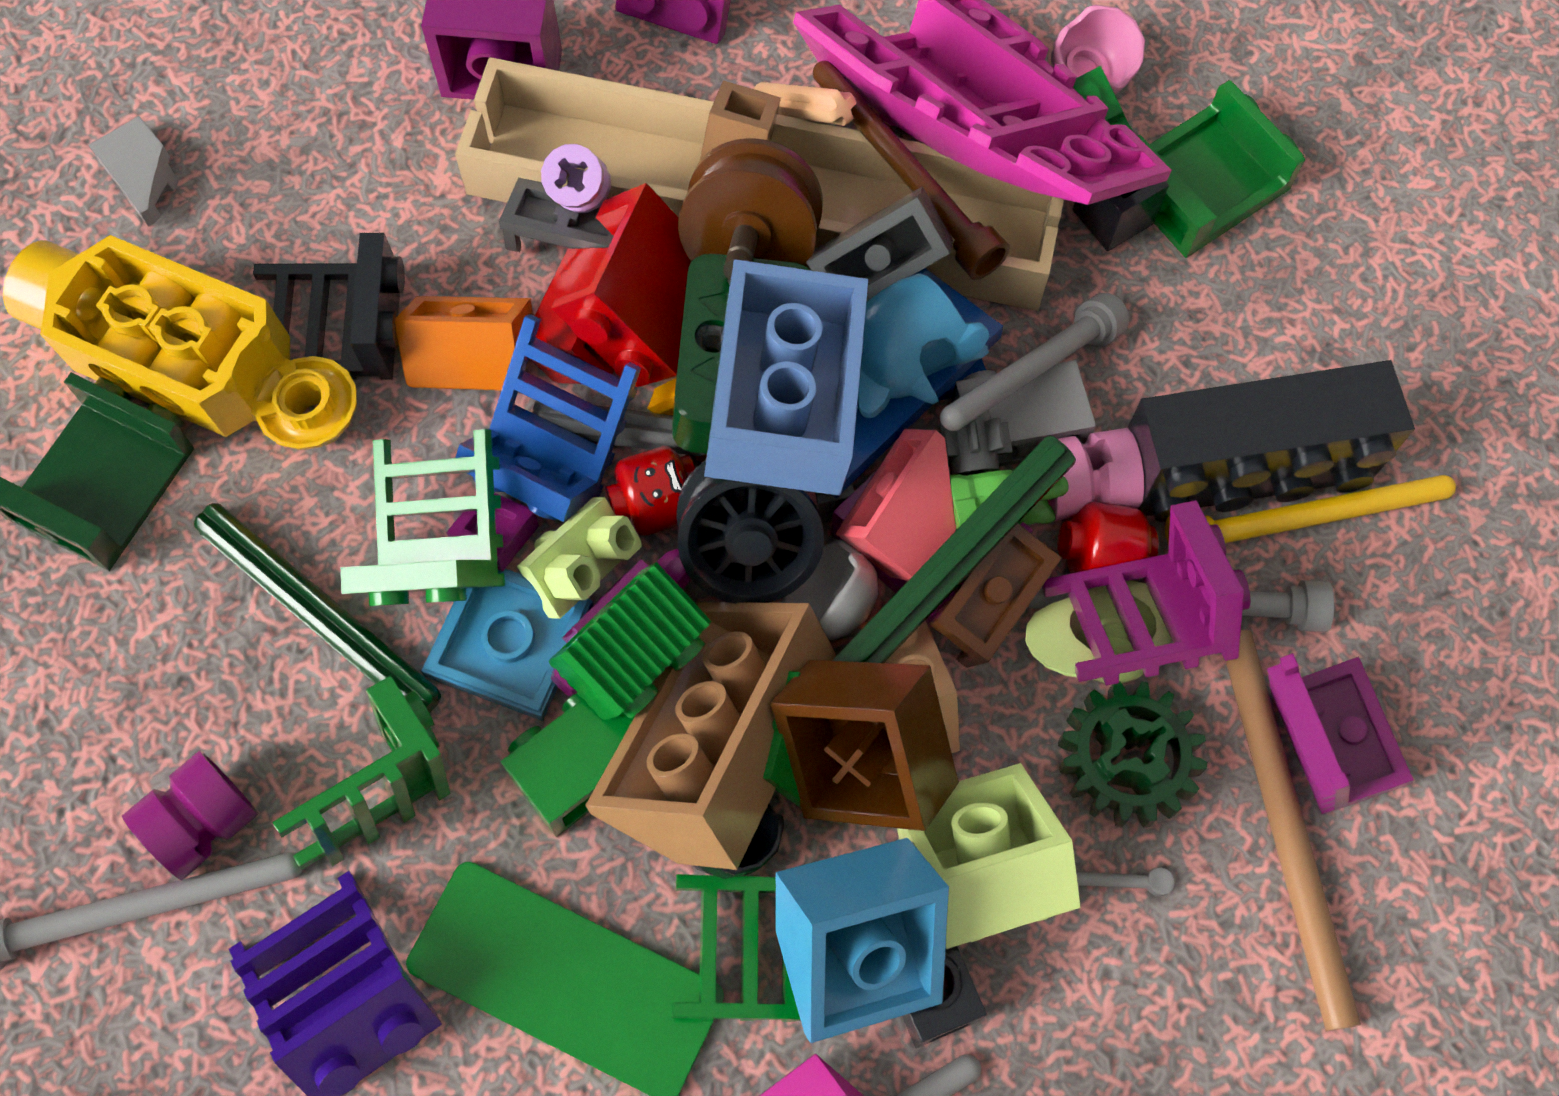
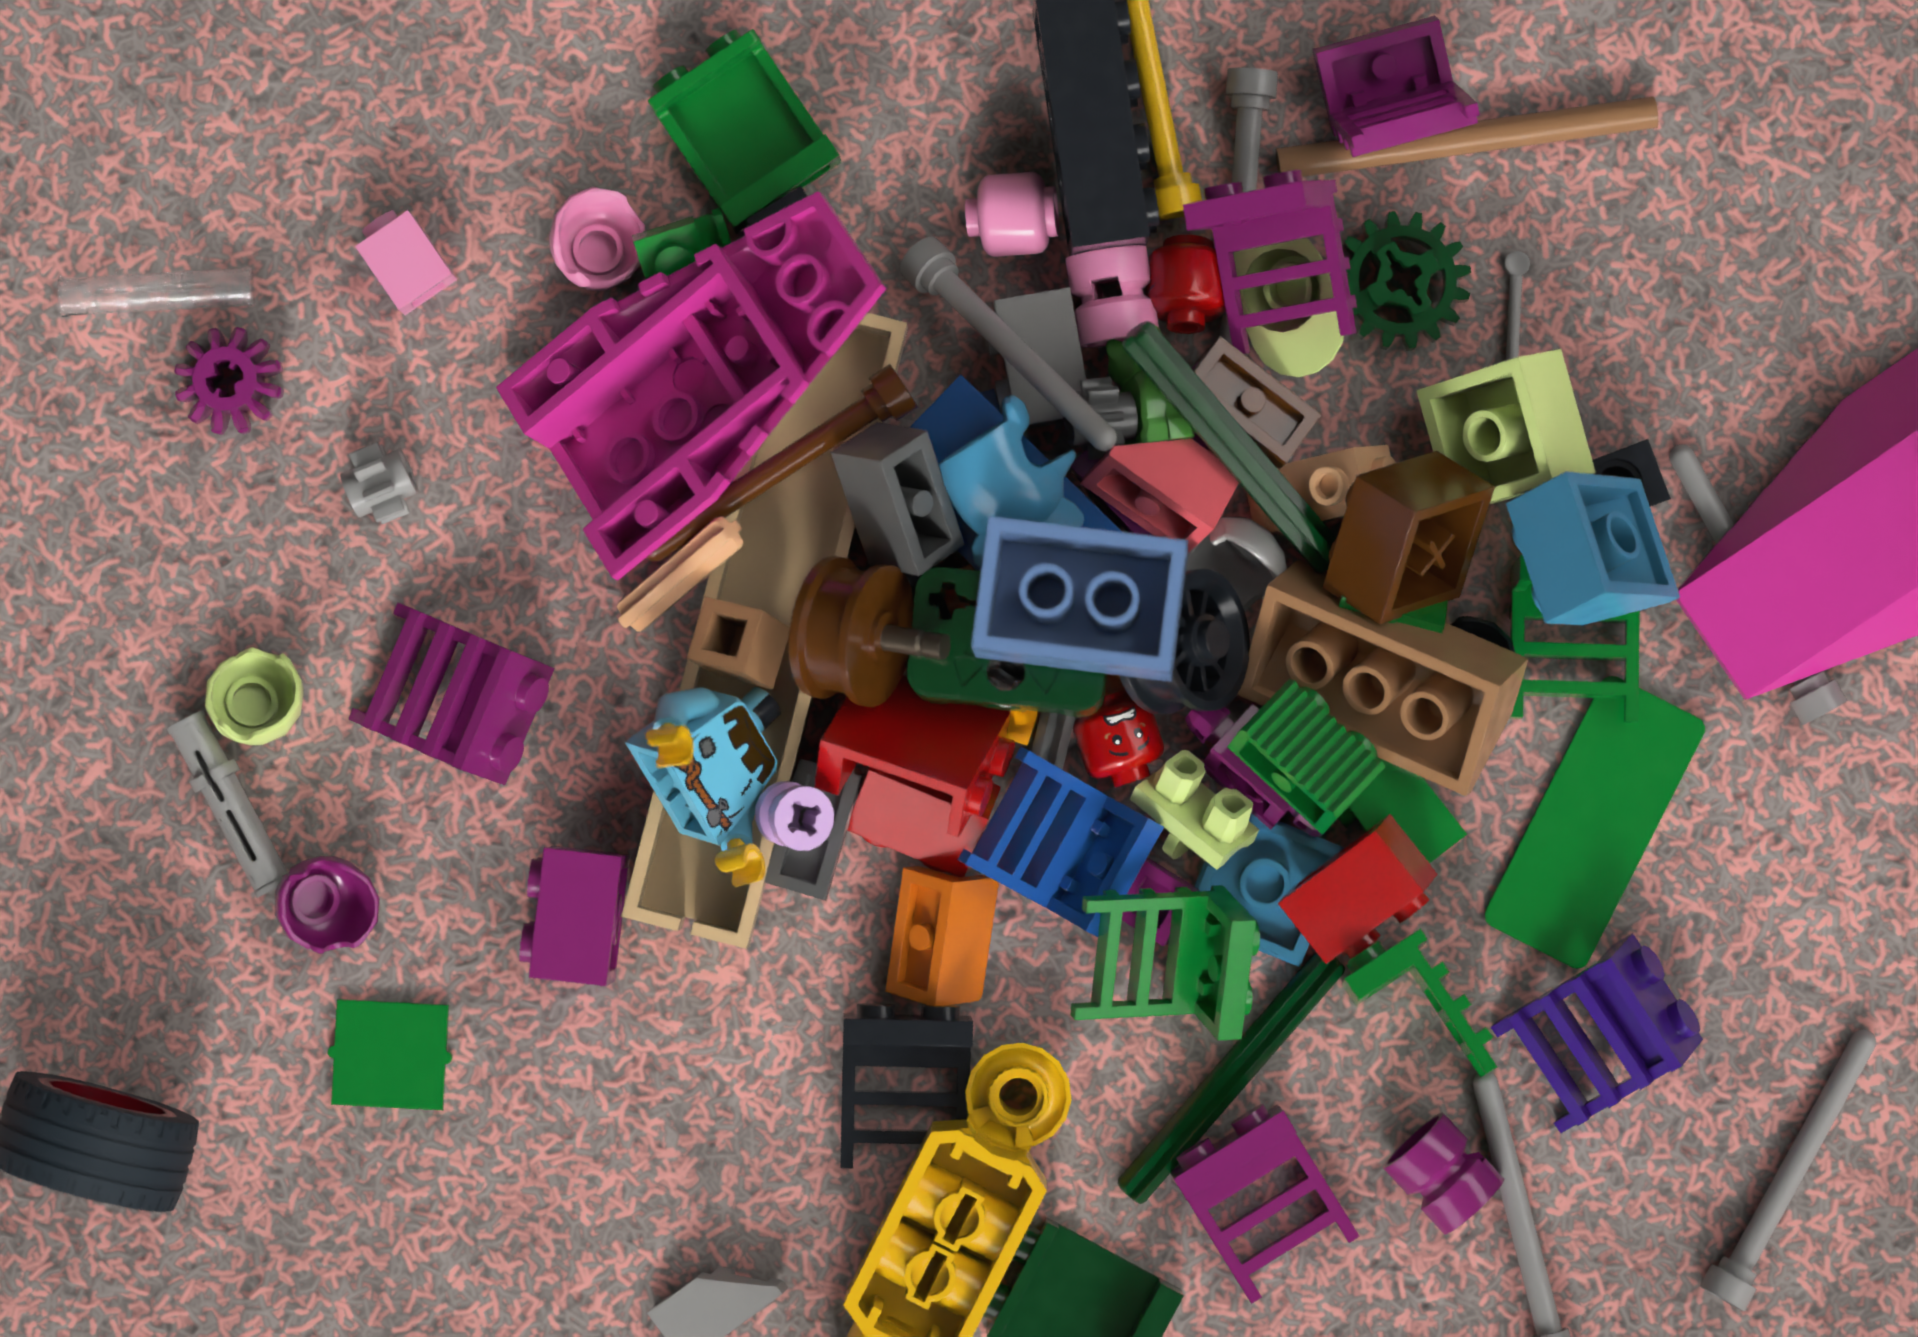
camera: 90 degrees left, 20 degrees up
(232, 619) = (1218, 1170): none -> magenta plate
(492, 706) = (1360, 890): none -> red brick
(627, 107) = (711, 768): none -> medium azure torso
(1153, 371) = (1013, 214): none -> bright pink head

